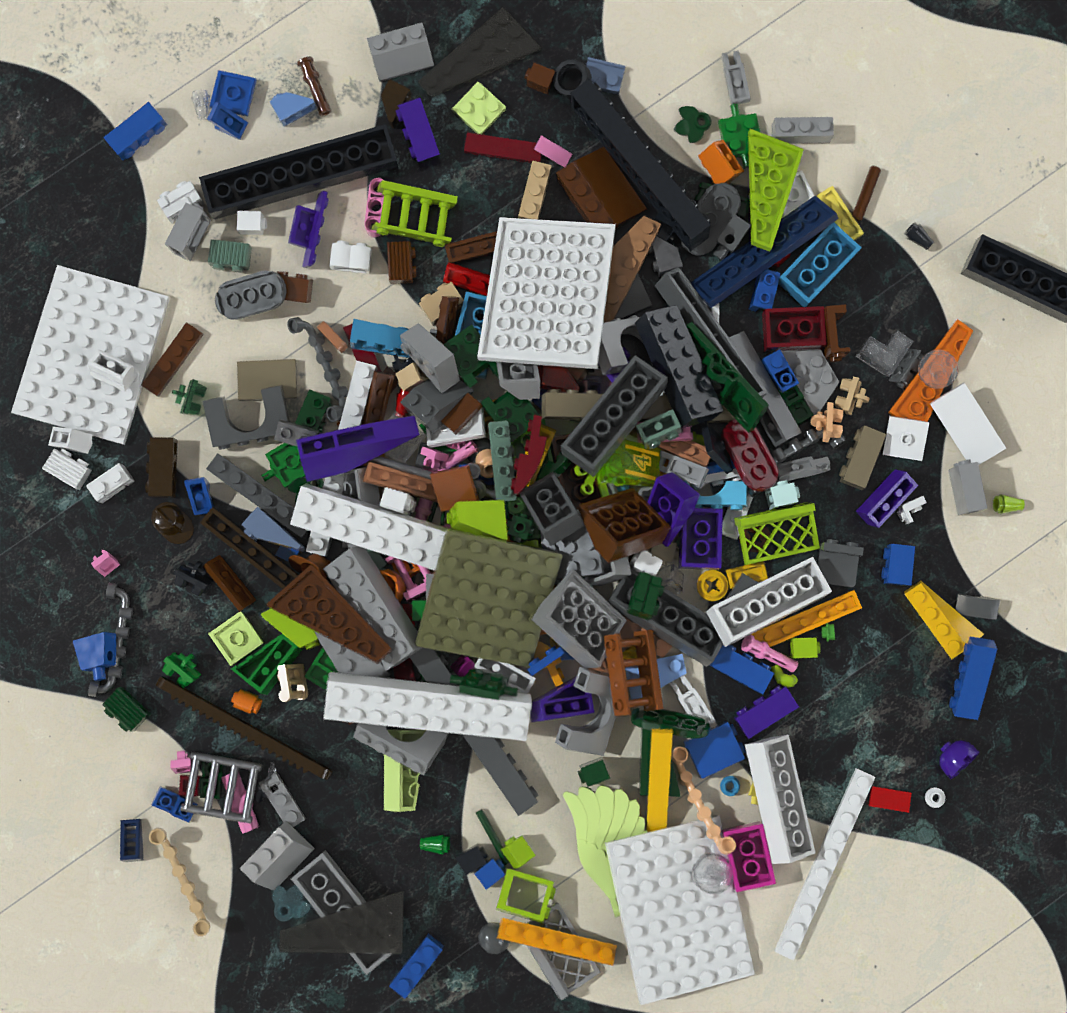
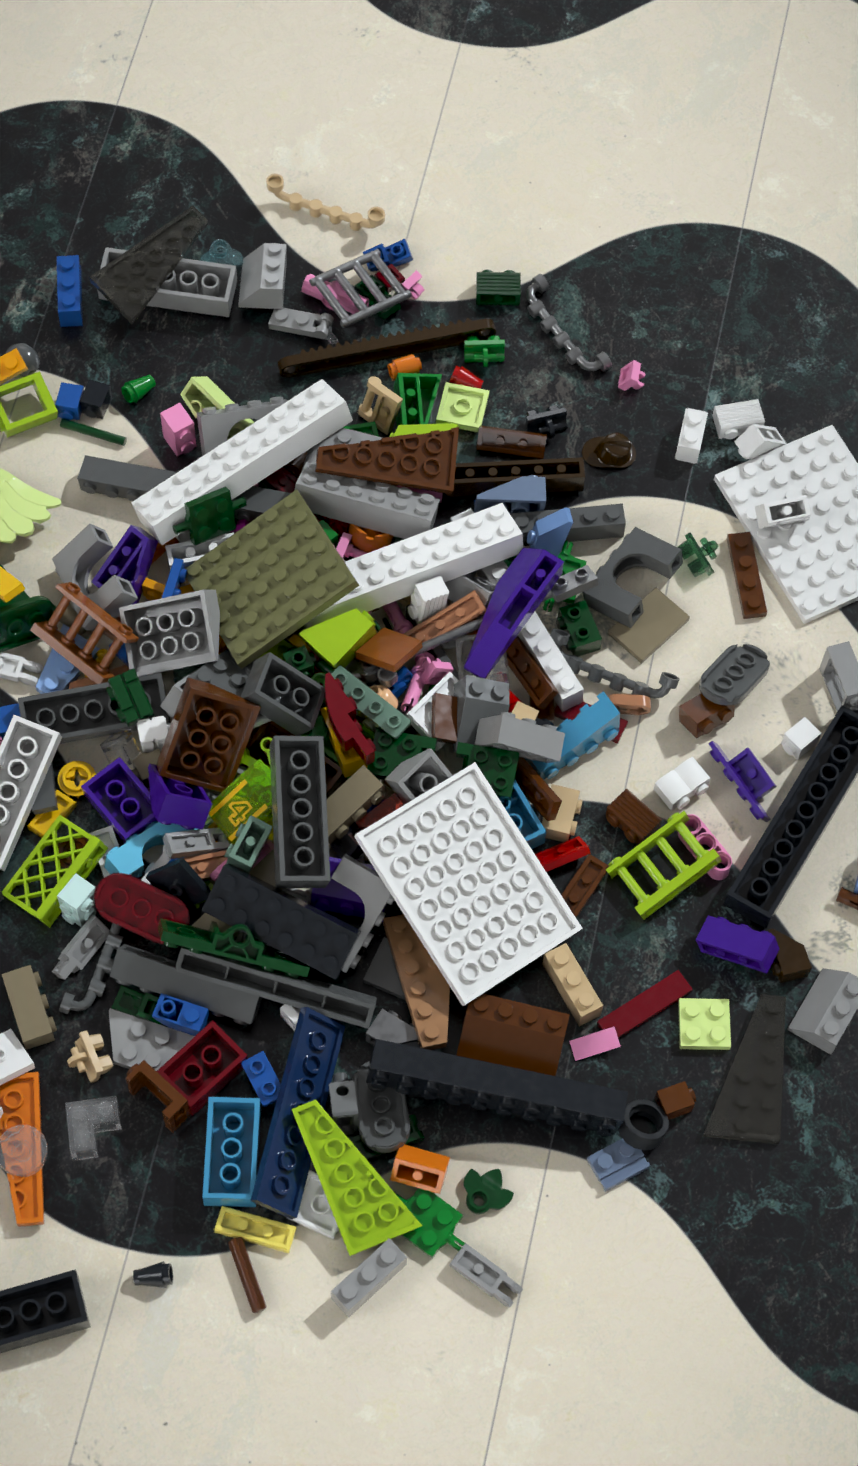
camera: 135 degrees right, 20 degrees down
(96, 653) = (564, 303): blue torso -> none
(124, 857) = (395, 196): dark blue slope -> none
(162, 467) = (661, 482): dark brown brick -> none
(199, 495) = (607, 484): blue slope -> none
(215, 658) = (465, 377): none -> red cone
(229, 255) = (789, 696): sand green brick -> none
(274, 484) = (551, 532): none -> medium blue slope
(318, 562) = (450, 508): dark orange piece -> none
(440, 780) = (178, 429): none -> bright pink brick
(517, 851) = (60, 432): lime brick -> none
(593, 772) = (47, 537): dark green brick -> none
(826, 421) = (84, 999): light nougat hips -> none
(909, 362) = (55, 1121): dark grey hinge -> none

